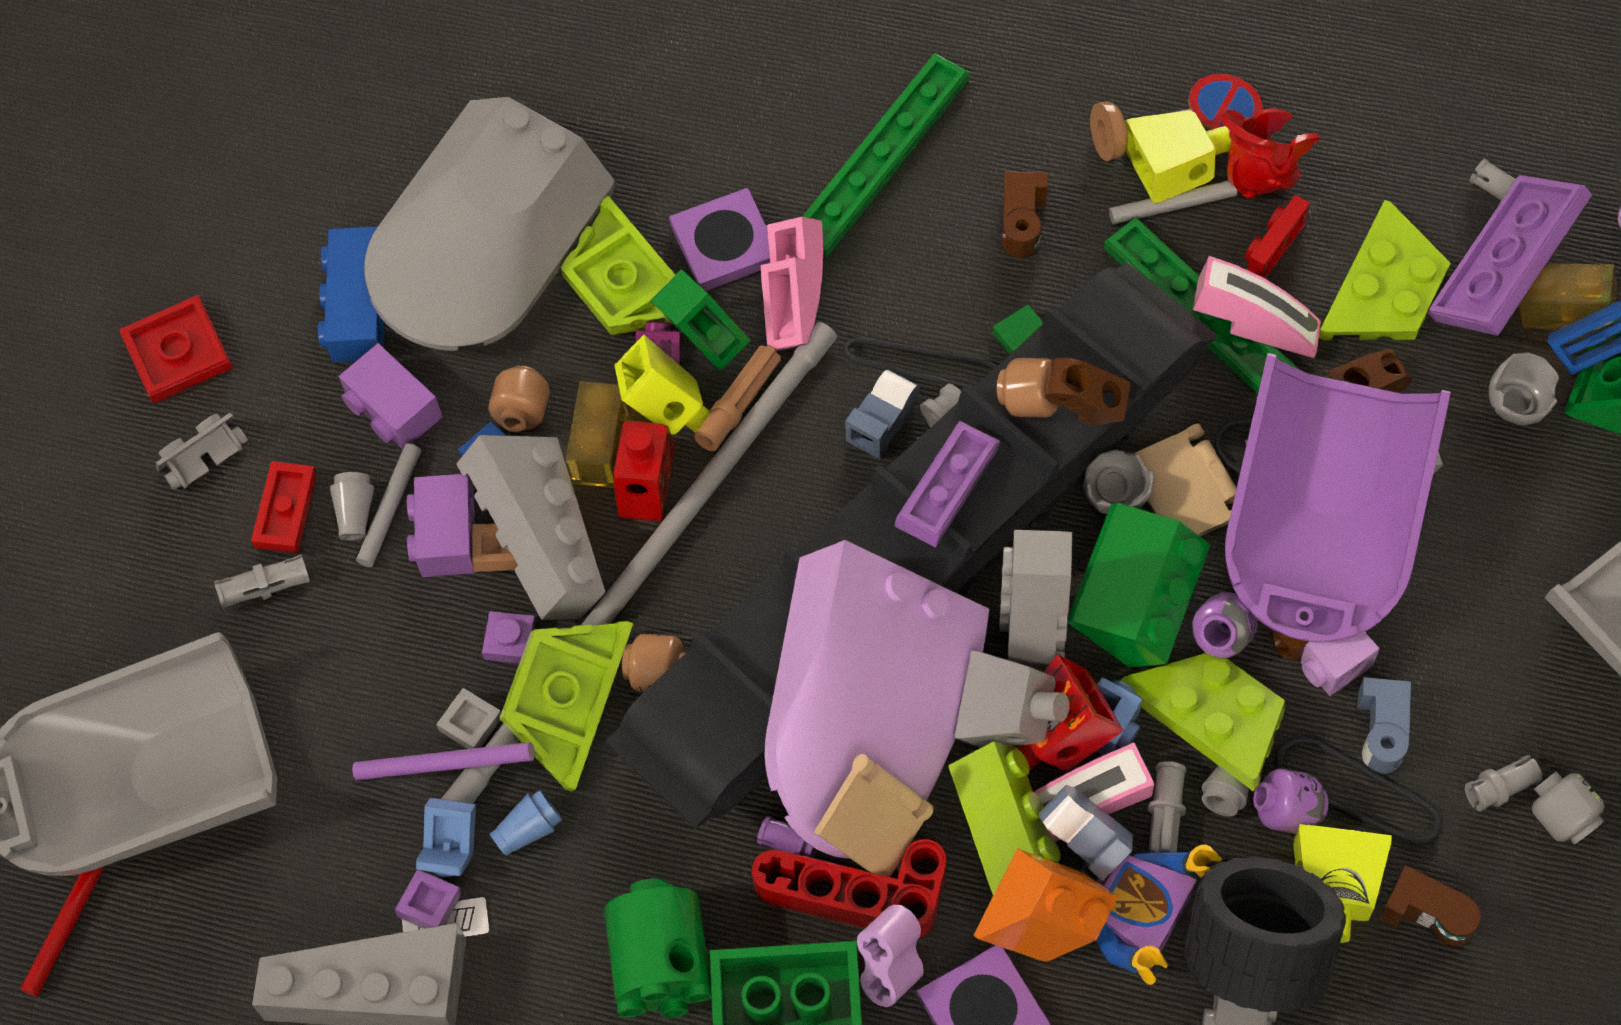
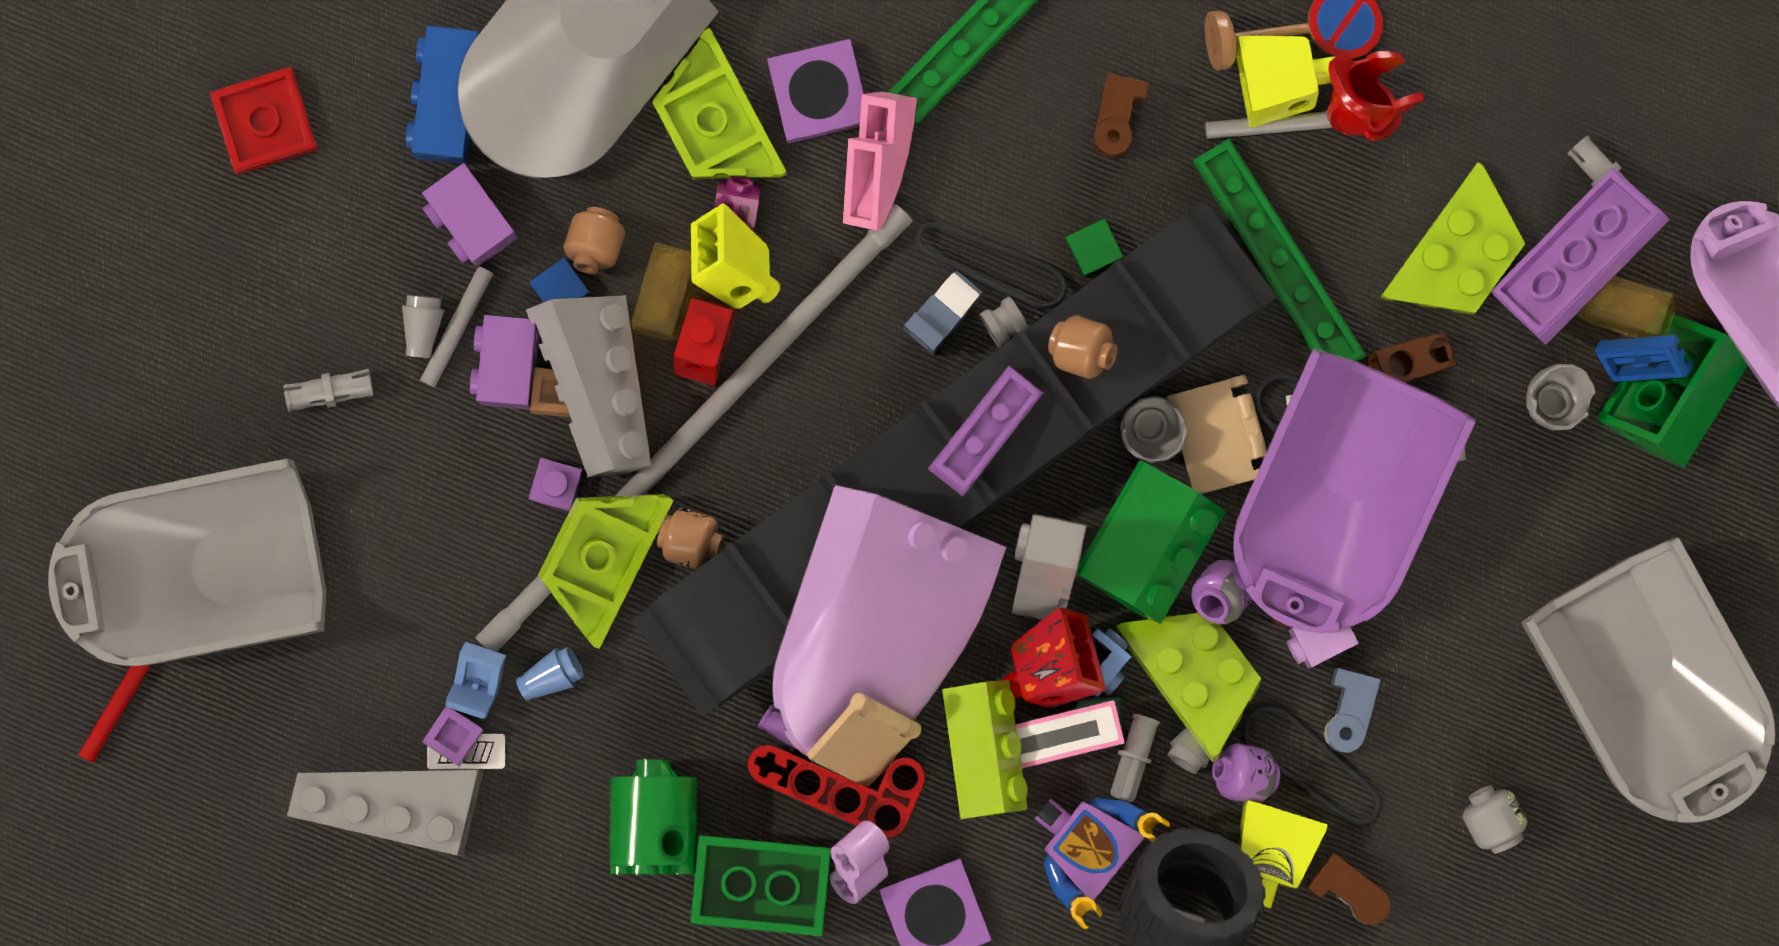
camera: 10 degrees right, 20 degrees up
(185, 458) = (293, 230): light grey hinge -> none
(284, 507) = (356, 315): red plate -> none
(443, 761) = (481, 604): medium lavender bar -> none
(469, 720) = (509, 565): light grey plate -> none
(700, 319) = (780, 189): green slope -> none
(728, 410) = (793, 290): medium nougat axle -> none
(1007, 703) = (1005, 644): light grey torso -> none
(1044, 908) = (1005, 843): orange slope -> none
(1082, 388) = (1127, 369): reddish brown leg -> none
(1087, 830) = (1056, 777): sand blue leg -> none
(1256, 308) = (1323, 269): slope -> none
(1283, 229) = (1372, 176): red plate -> none
(1496, 786) = (1436, 786): light grey pin -> none

